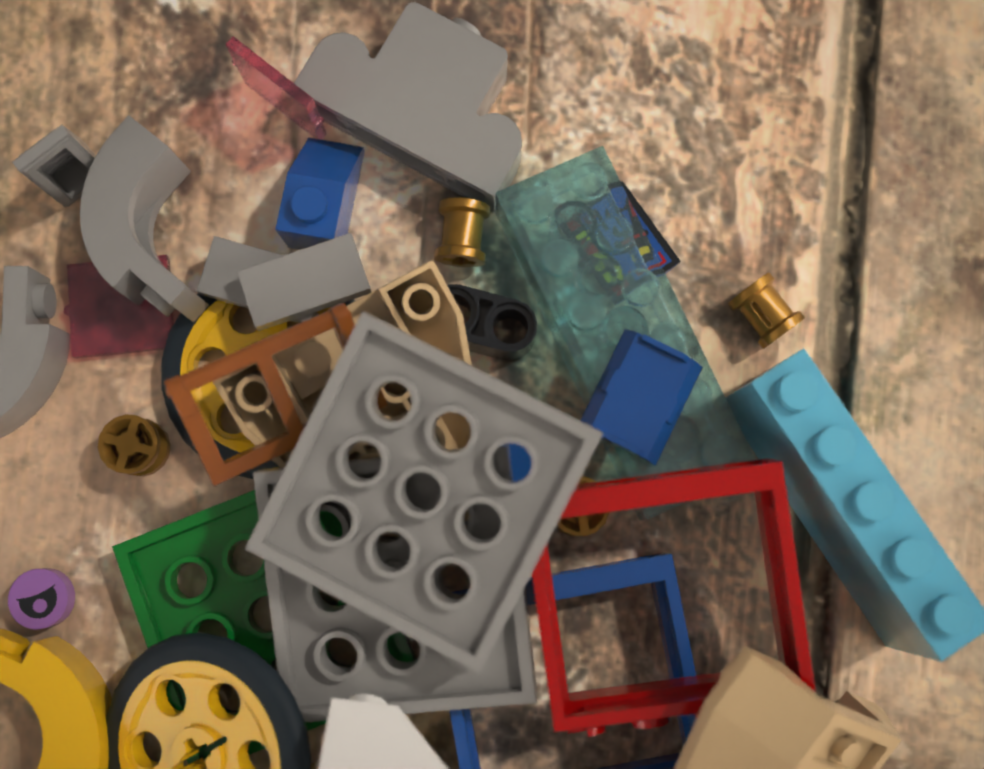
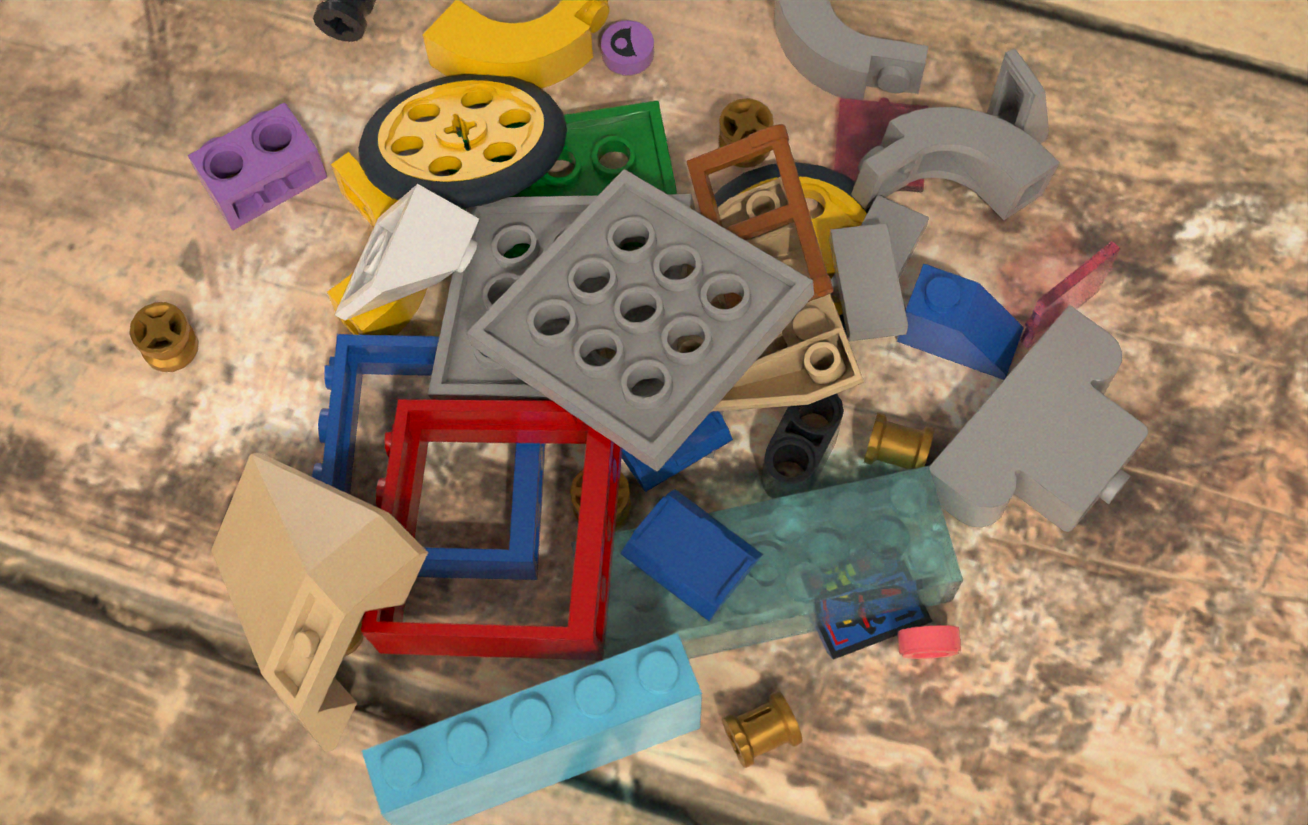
camera: 105 degrees right, 15 degrees down
(650, 176) = (929, 642): none -> coral tile

